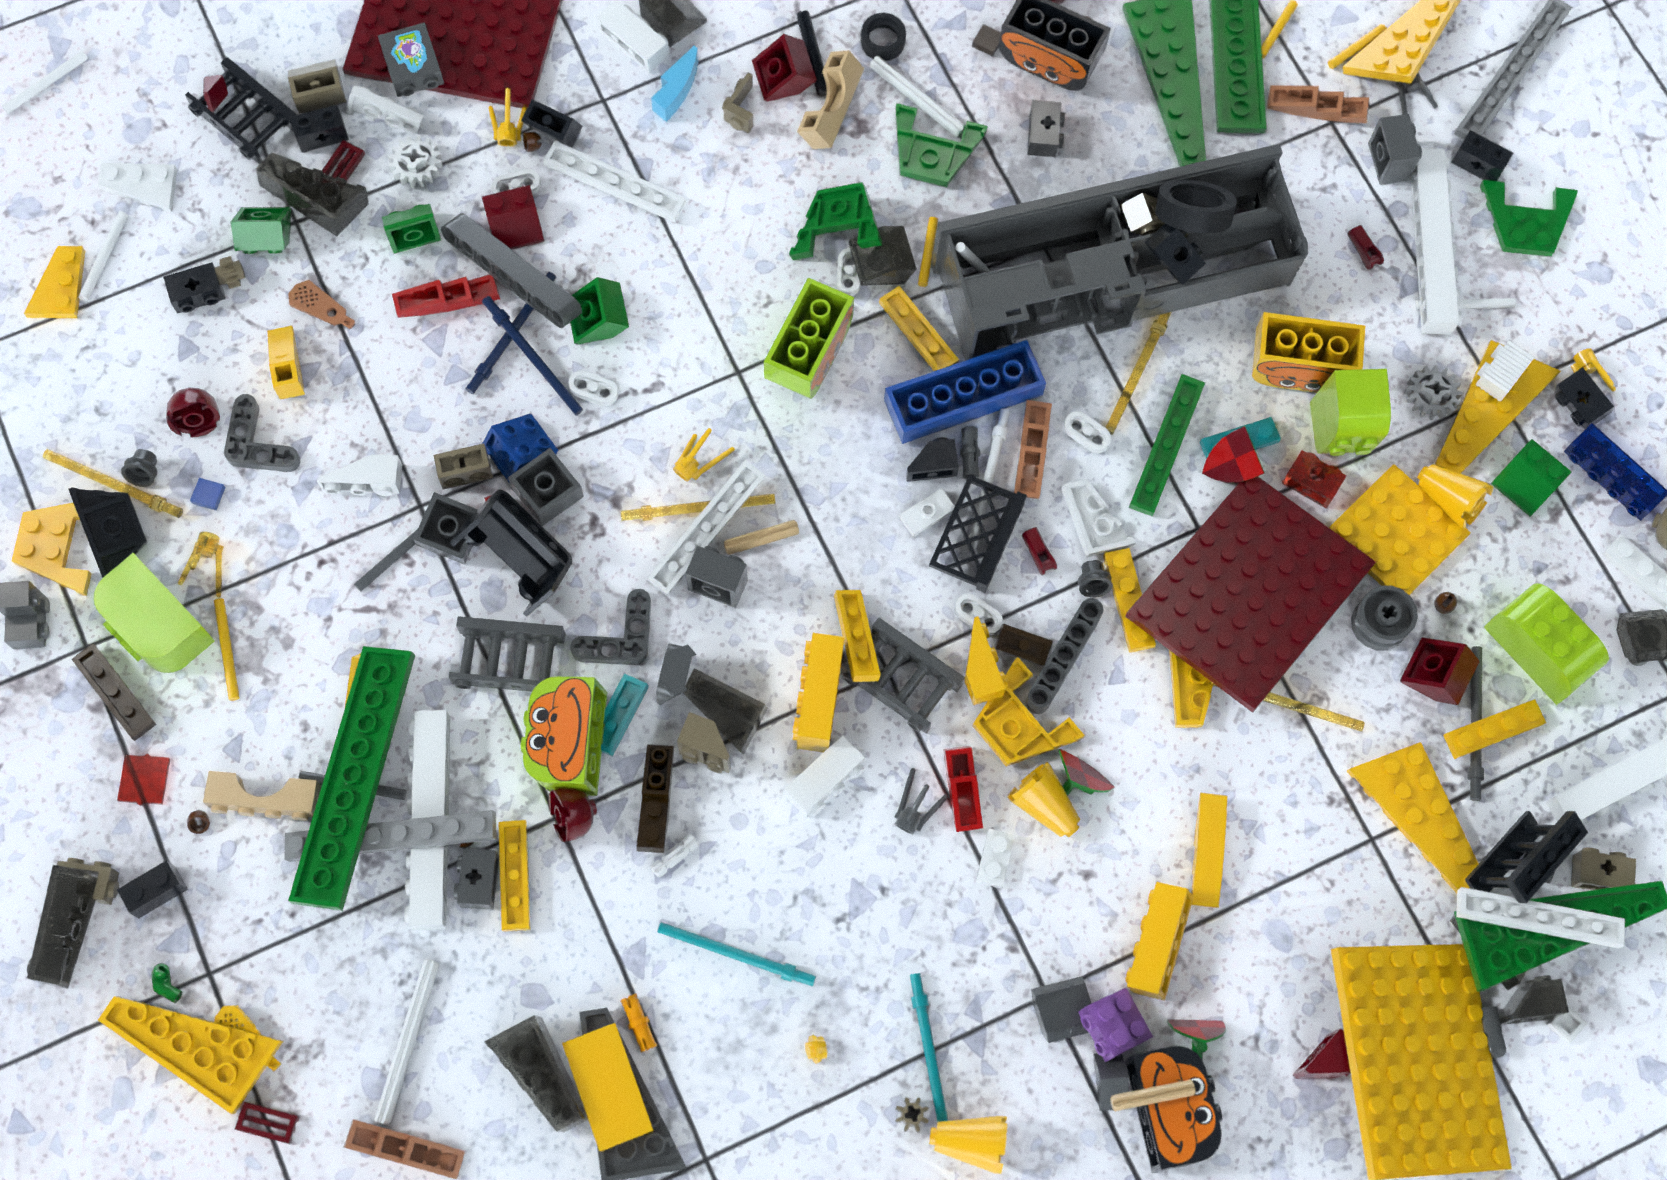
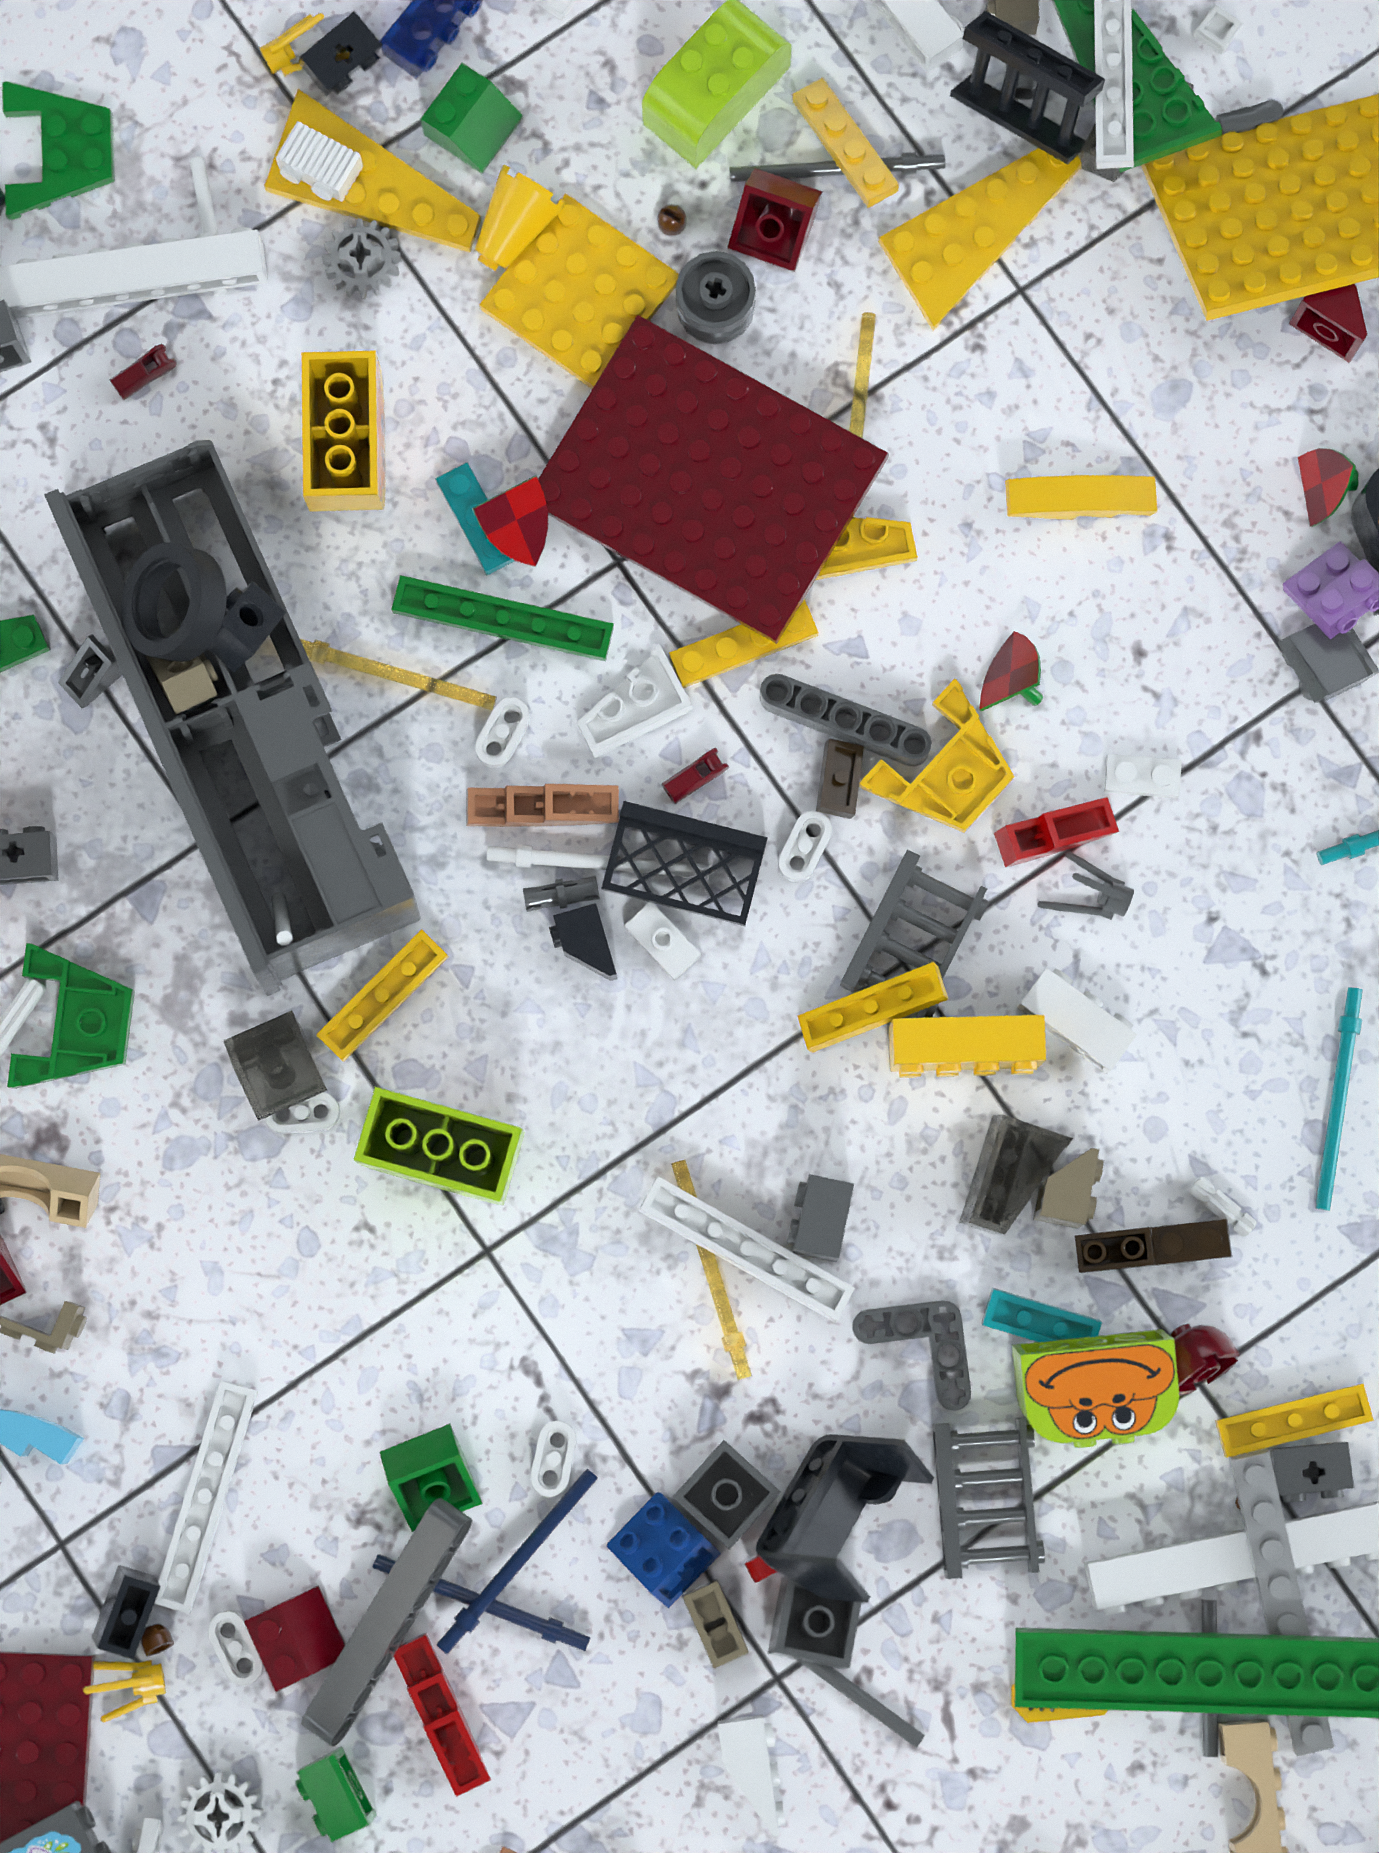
camera: 95 degrees left, 10 degrees up
(674, 672) = (979, 1249): dark grey slope -> none
(687, 466) = (654, 1294): yellow plant -> none
(761, 537) = (741, 1170): tan axle -> none
(837, 211) = (208, 1145): green wing -> none
(928, 252) = (247, 1002): yellow bar -> none
(964, 391) = (474, 912): blue brick -> none
(982, 674) = (895, 828): yellow slope -> none
(1046, 801) = (1056, 719): yellow cone -> none
(1094, 579) = (725, 693): dark grey piece -> none
(1159, 941) = (1217, 545): yellow brick -> none
(1320, 491) = (521, 431): clear red brick -> none
(1351, 412) = (435, 363): lime brick -> none
(1536, 1001) = (1211, 64): clear smoke slope -> none

